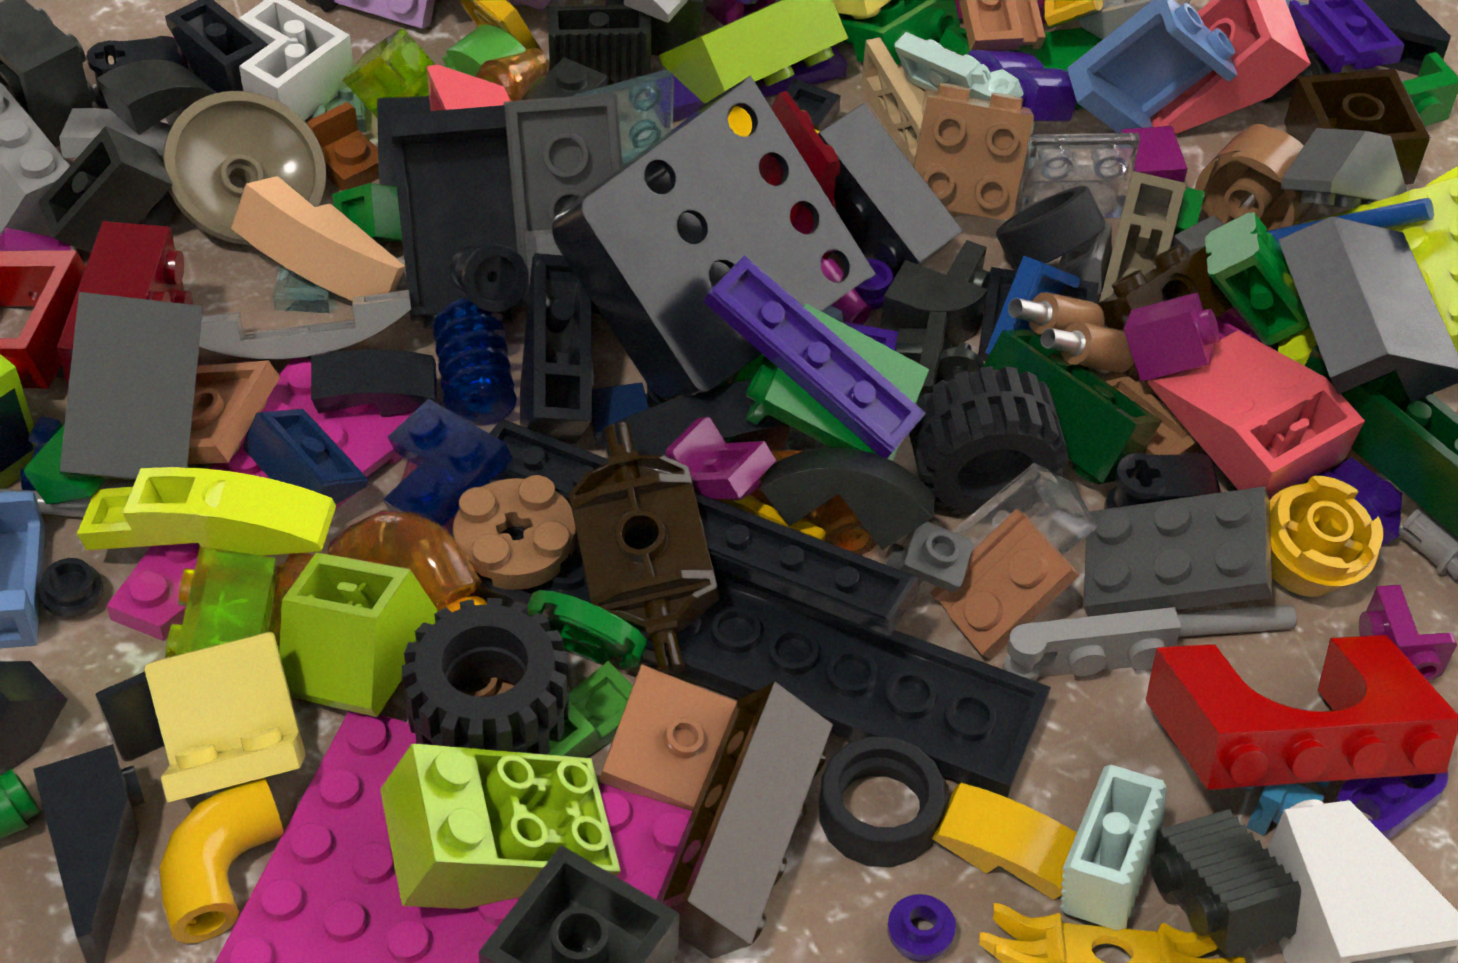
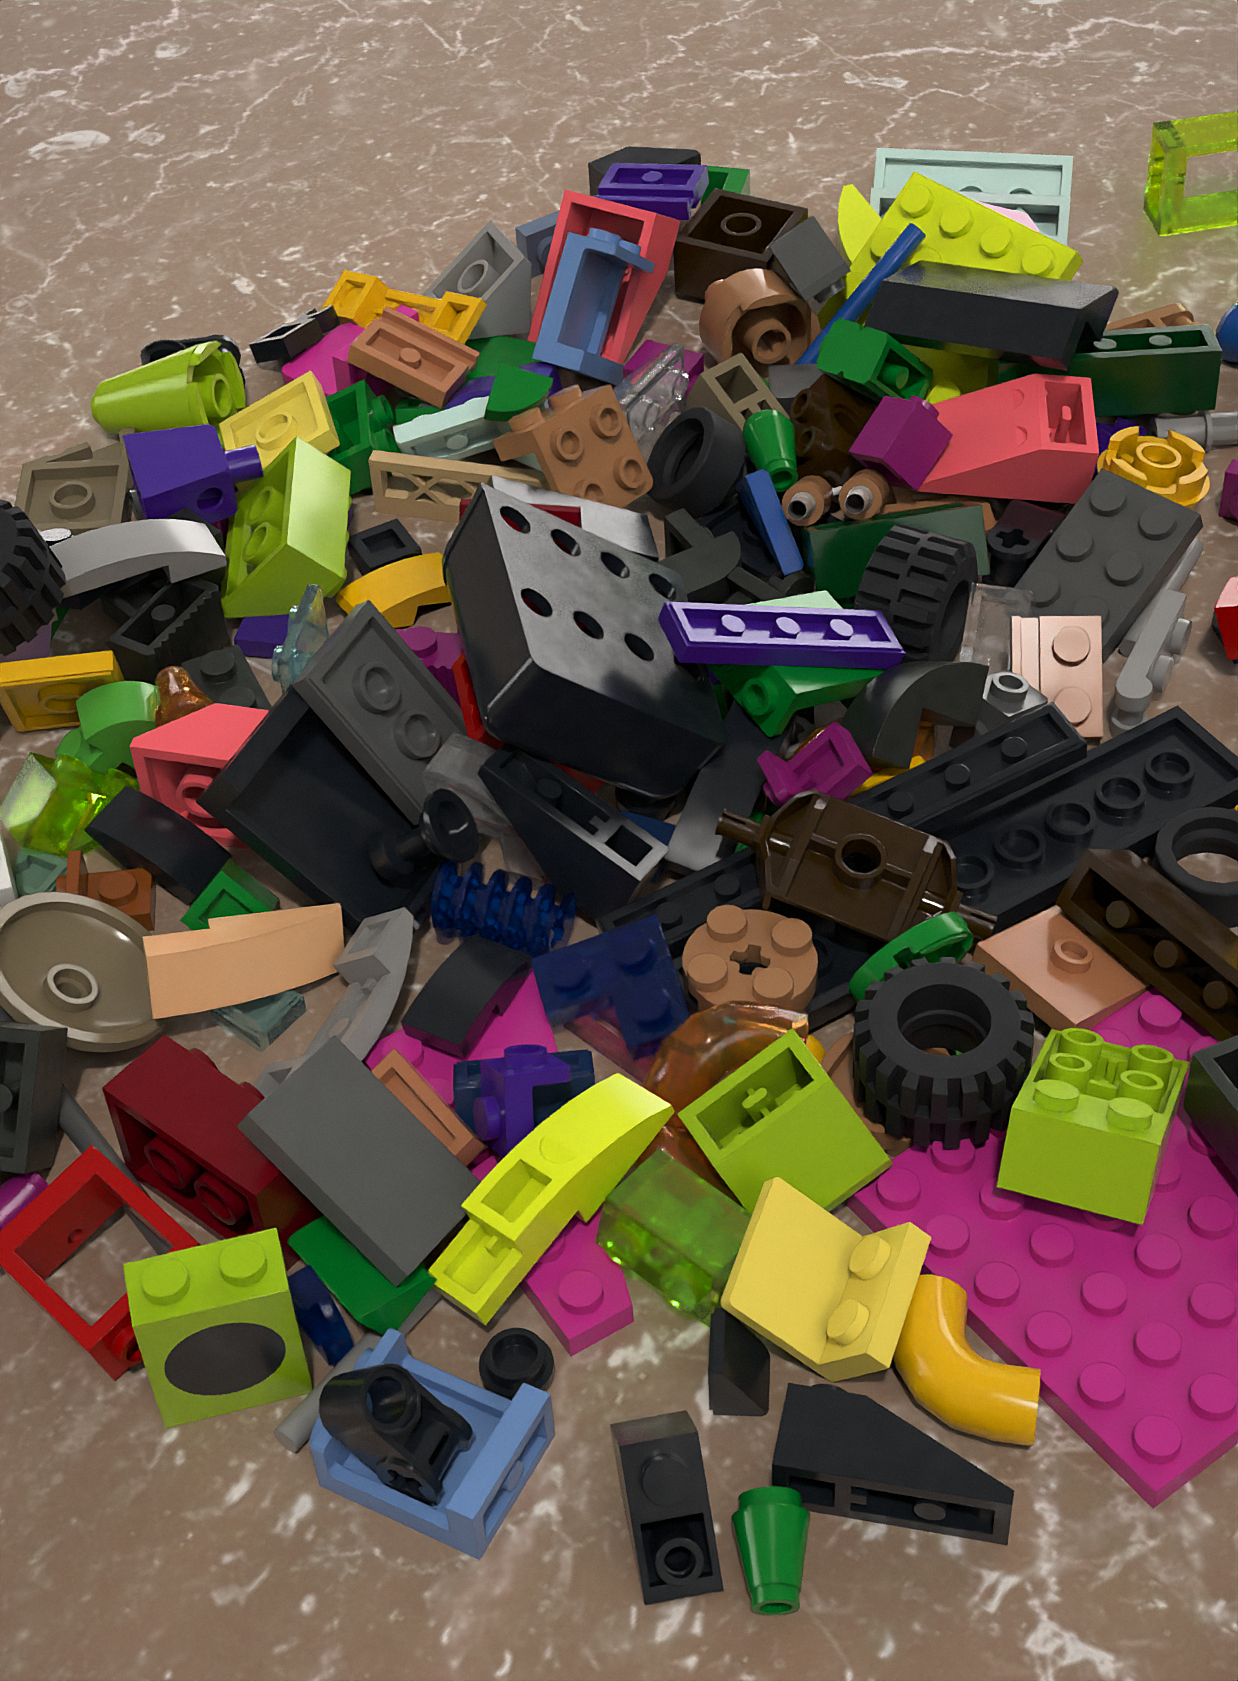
camera: 50 degrees left, 5 degrees down
(264, 439) = (506, 1105): none -> dark purple bracket
(981, 71) = (515, 393): none -> green tile
(1102, 263) = (772, 447): none -> green cone

